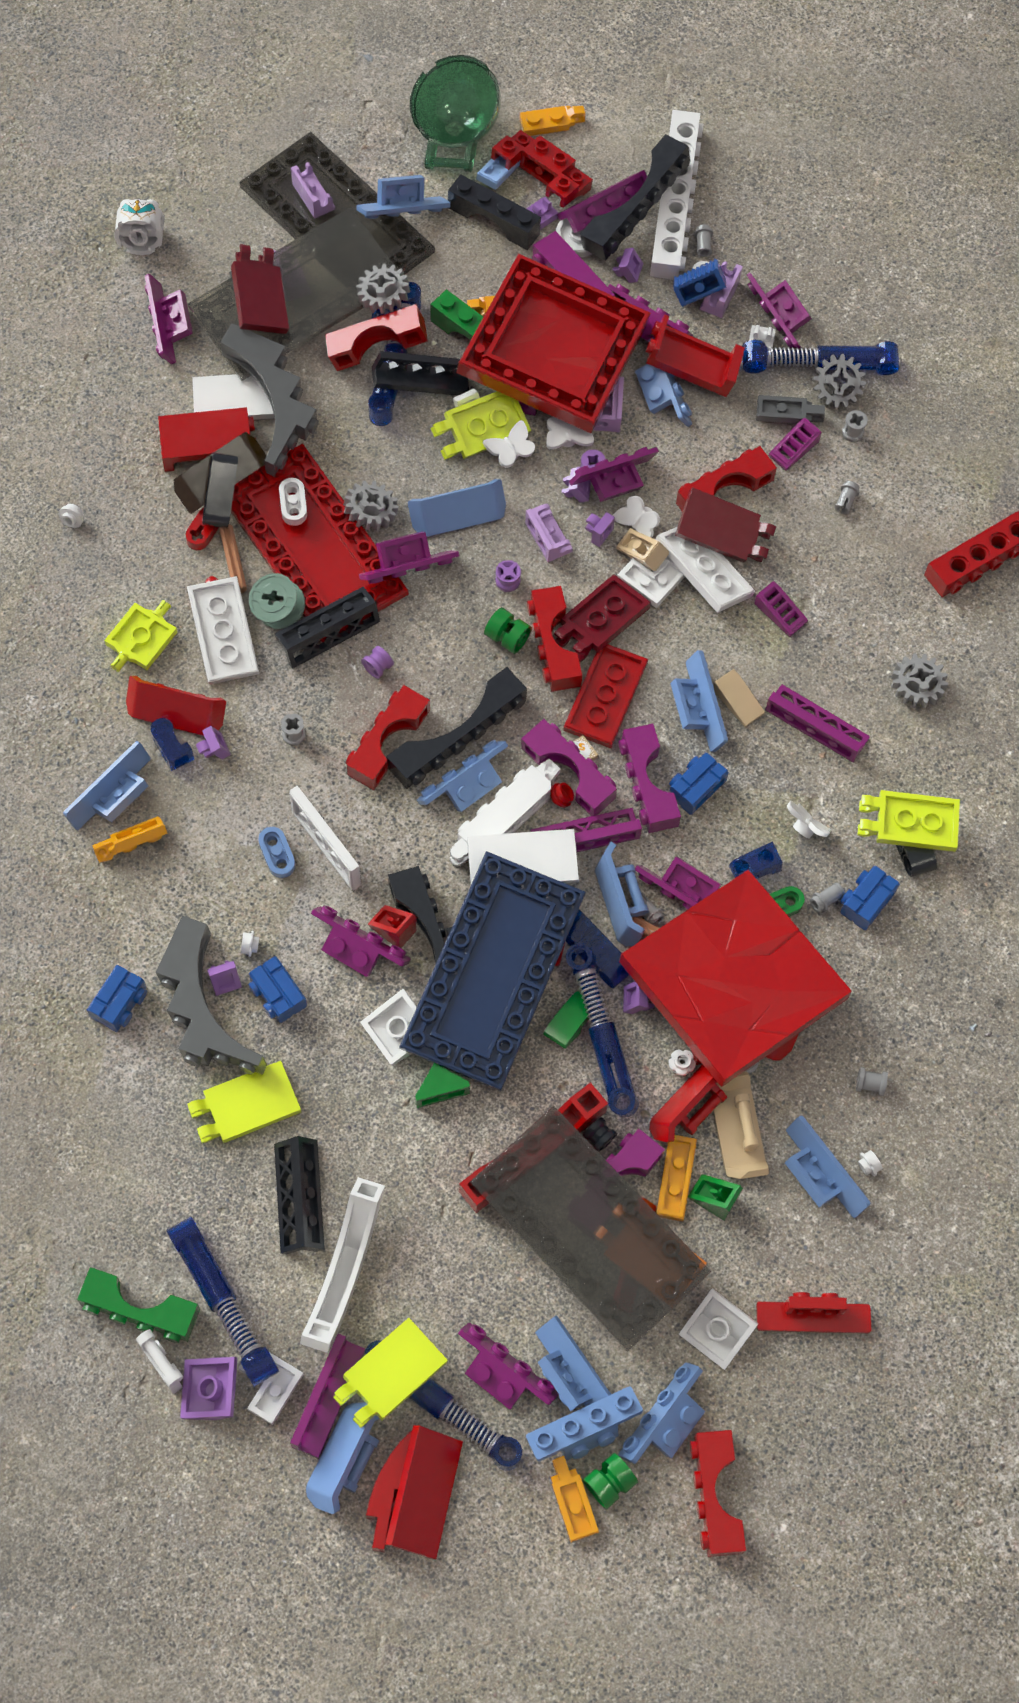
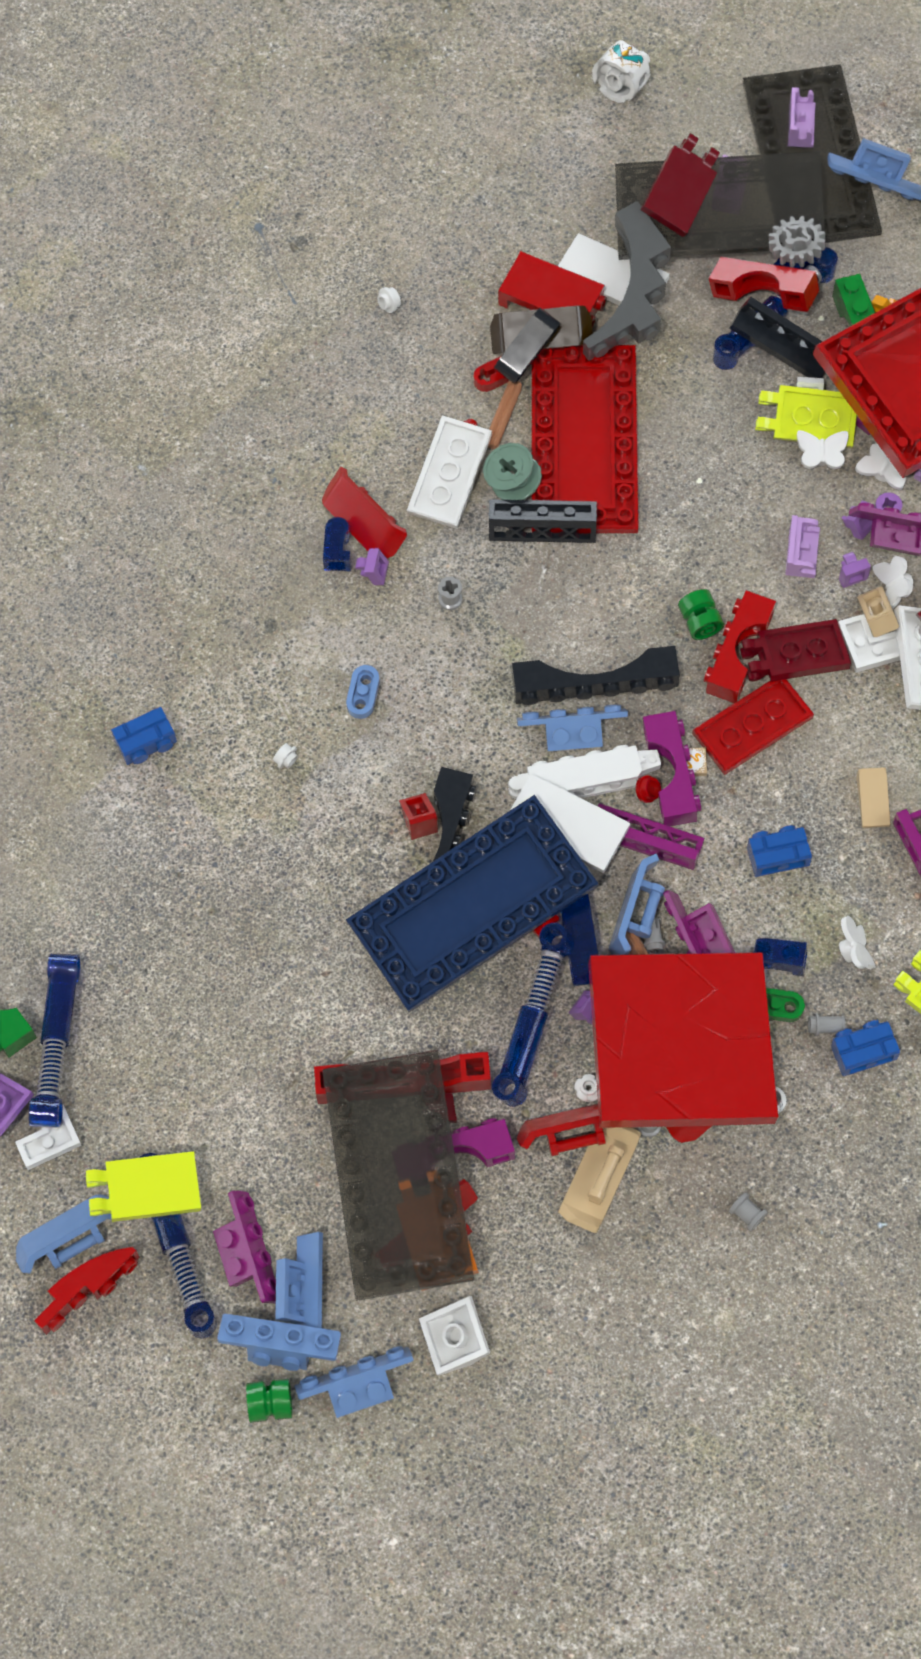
camera: 40 degrees right, 0 degrees up
(112, 790) = (260, 556): medium blue bracket -> none
(130, 838) = (247, 607): light orange hinge -> none
(141, 636) = (376, 437): neon yellow plate -> none
(169, 317) = (593, 167): magenta bracket -> none
(204, 1037) = (213, 746): dark grey arch -> none
(224, 978) = (244, 772): medium lavender tile -> none
(246, 1104) = (190, 890): neon yellow tile -> none
(277, 990) = (280, 809): blue brick -> none
(293, 503) = (587, 393): white plate -> none
(304, 1193) = (183, 994): black fence -> none
(322, 1407) = (68, 1184): magenta fence -> none
(325, 838) = (408, 703): white tile -> none
(345, 1265) = (174, 1079): white arch -> none
(354, 946) = (373, 811): magenta bracket -> none
(370, 505) = (656, 434): light grey gear -> none
(377, 662) = (565, 576): medium lavender wheel -> none
(389, 1024) = (353, 895): white slope -> none
(405, 554) = (654, 494): magenta bracket -> none
(405, 712) = (558, 634): red arch -> none
(424, 1492) = (108, 1305): red tile -> none
(440, 1086) = (359, 976): green slope -> none
(458, 508) = (734, 480): medium blue piece -> none
(508, 569) = (740, 560): medium lavender wheel -> none
(568, 1021) = (509, 990): green slope -> none
(572, 1501) = (227, 1397): light orange hinge -> none
(600, 1134) = (470, 1104): black wheel -> none
(658, 807) = (747, 792): magenta arch -> none
(676, 1178) = (512, 1184): light orange tile -> none
(698, 702) = (830, 777): medium blue bracket -> none
(715, 1195) = (535, 1222): green slope -> none
(722, 1531) = (373, 1439): red arch -> none
(814, 1314) = (548, 1379): red bracket -> none
(821, 1171) = (642, 1260): medium blue bracket -> none
(869, 1163) = (694, 1282): white plate -> none

